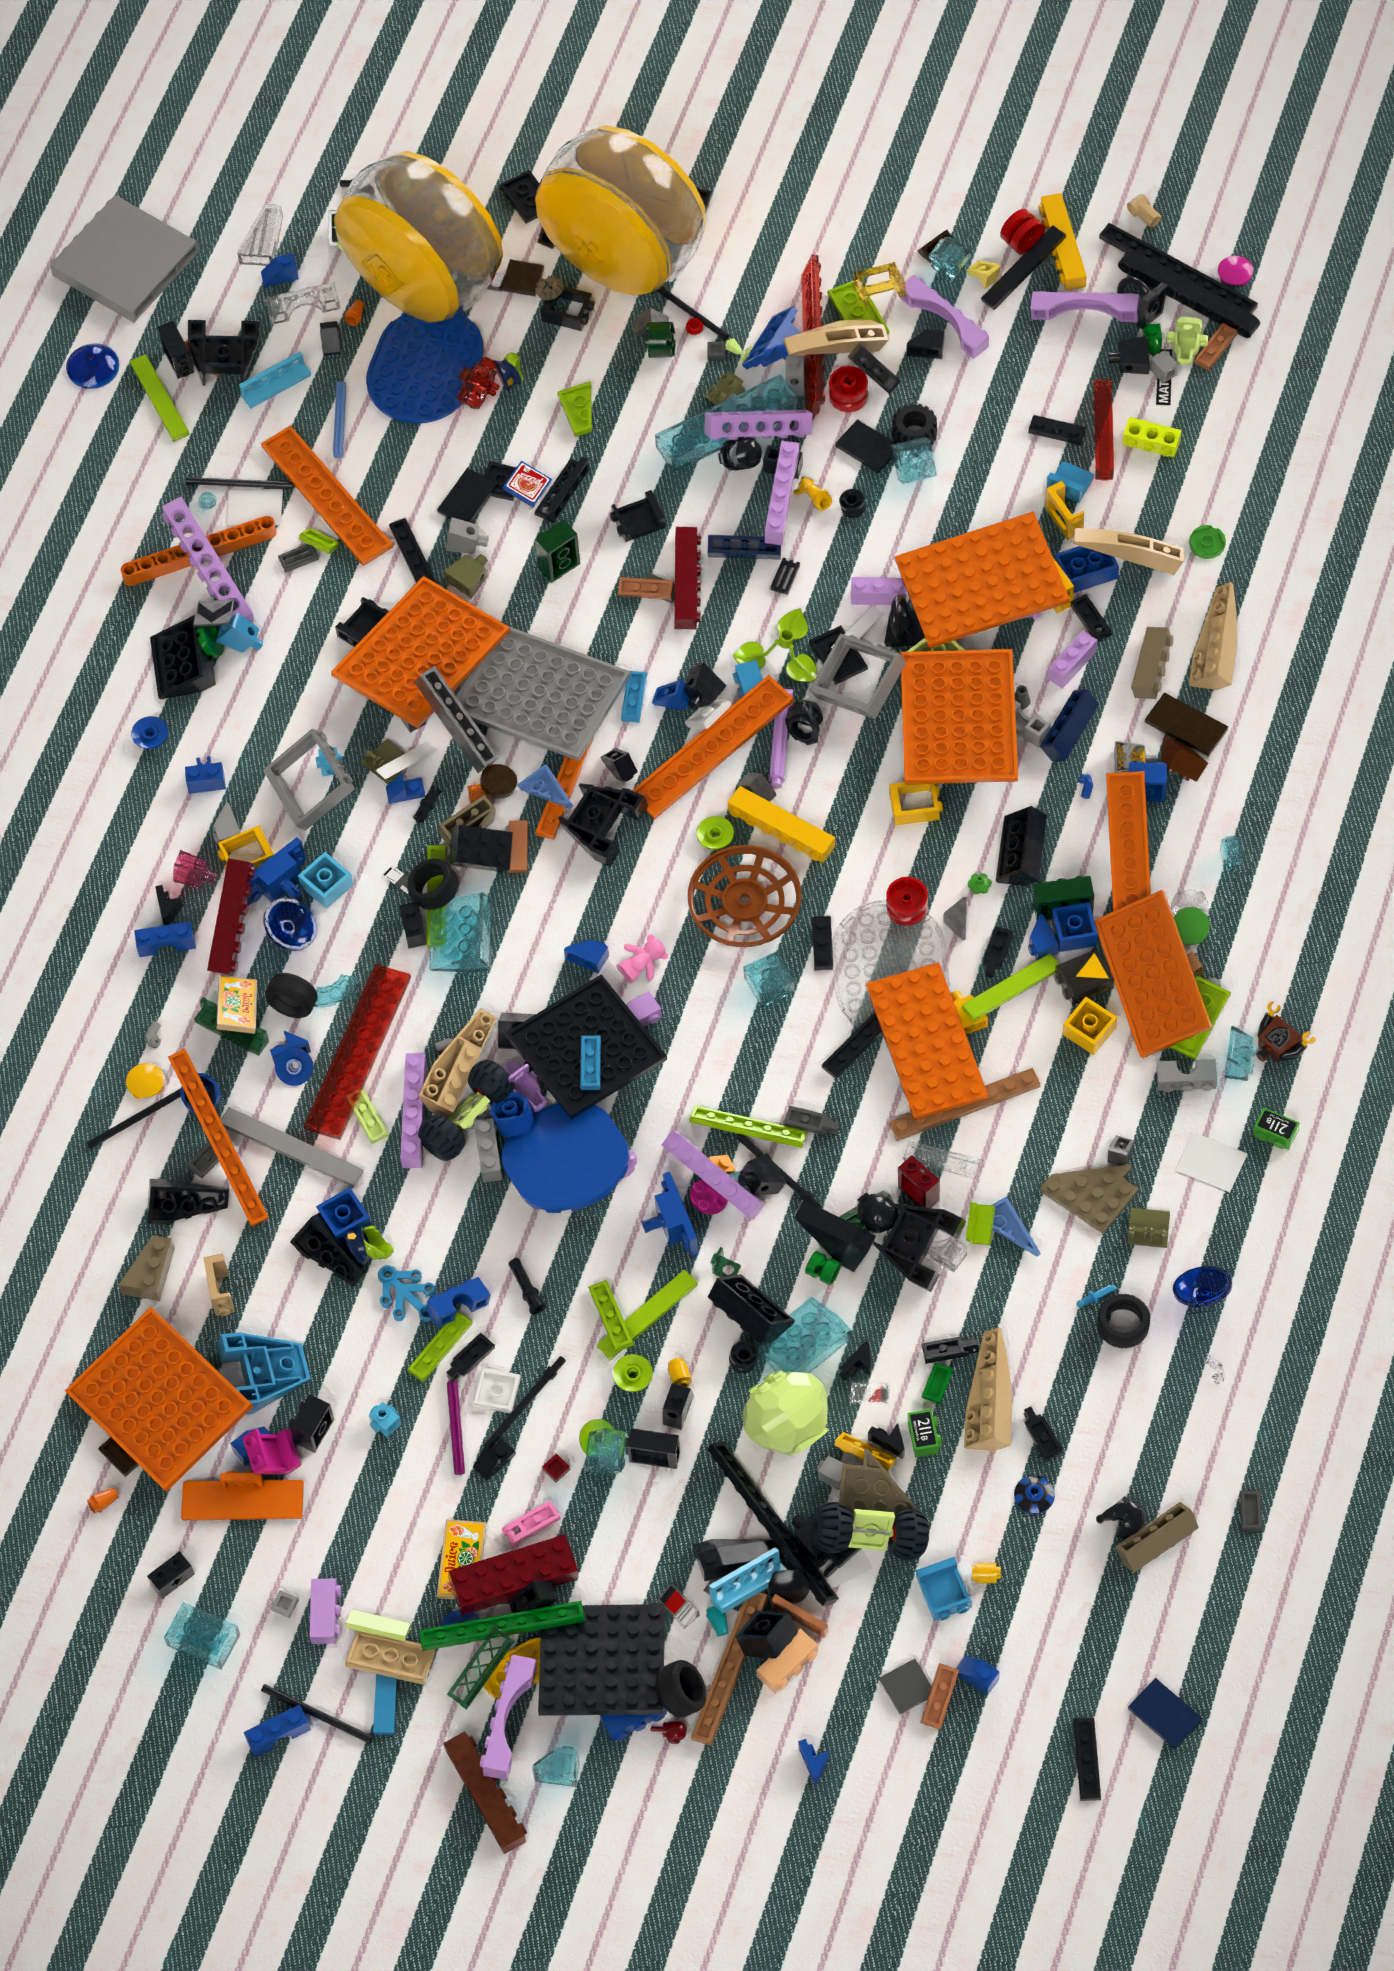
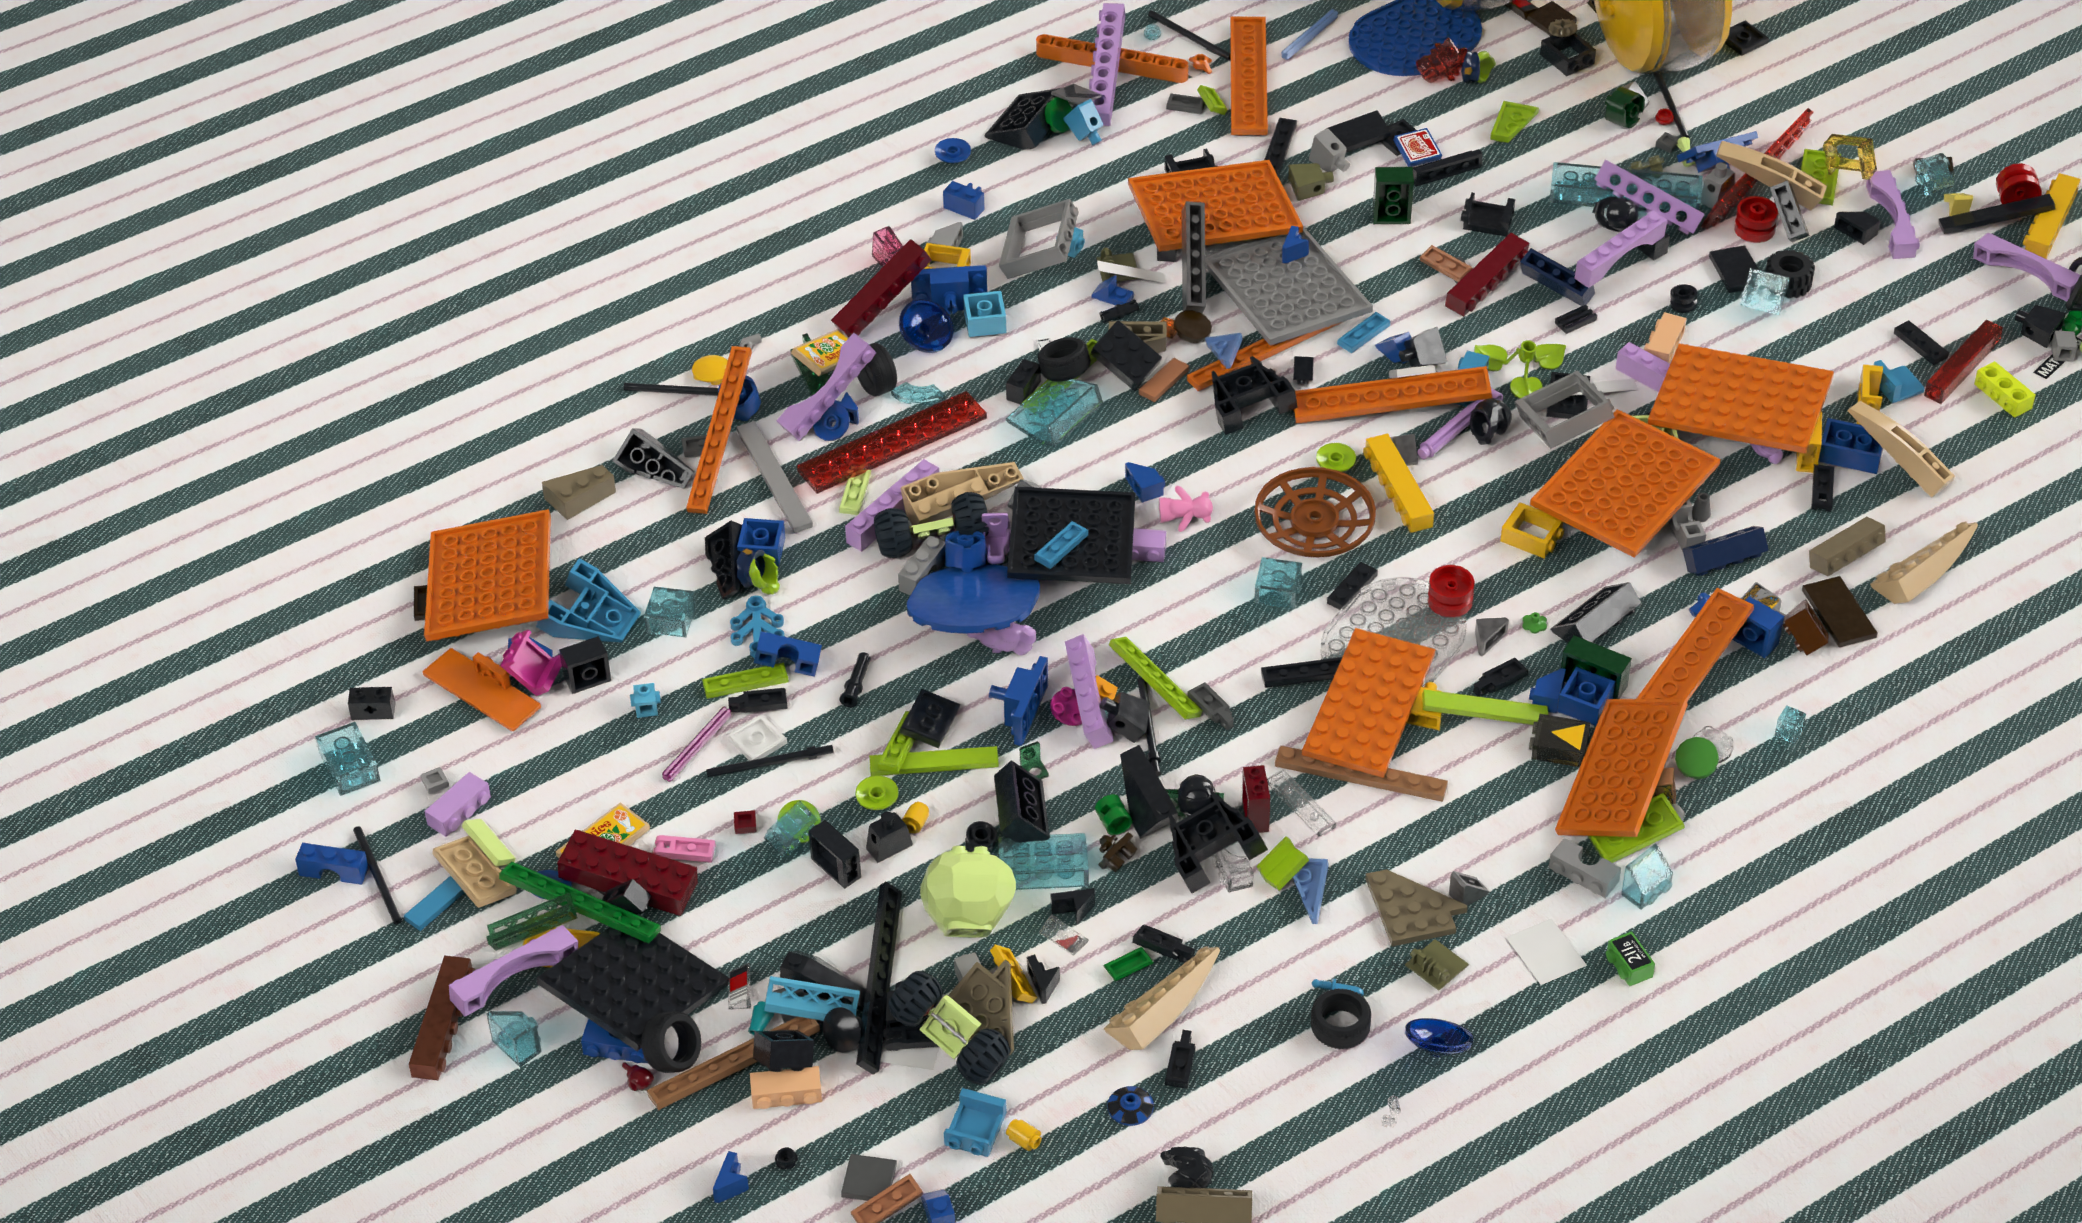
camera: 35 degrees right, 15 degrees down
(101, 1500) = (378, 622): orange cone -> none
(168, 907) = (847, 266): black slope -> none
(177, 935) = (836, 288): blue arch -> none
(216, 1269) = (617, 520): tan panel -> none
(275, 507) = (1201, 62): none -> orange piece
(278, 999) = (802, 416): none -> lavender arch
(329, 1328) = (670, 612): none -> clear light blue brick
(493, 1459) = (699, 785): black slope -> none
(520, 653) = (1294, 246): none -> blue slope
(615, 1281) = (930, 718): none -> black tile
(800, 1616) = (830, 1060): nougat tile -> none
(820, 498) = (1658, 281): yellow animal -> none
(836, 1710) = (786, 1153): none -> black plate
(846, 1297) = (1111, 858): none -> dark brown hips
(870, 552) = (1666, 336): none -> light nougat brick
(902, 626) = (1643, 401): black tile -> none
(923, 1433) = (1077, 992): brick -> none
(1072, 659) = (1775, 506): lavender brick -> none
(1089, 1025) = (1528, 776): yellow brick -> none
(1207, 542) = (1987, 491): bright green tile -> none
(1279, 1039) = (1699, 889): torso -> none

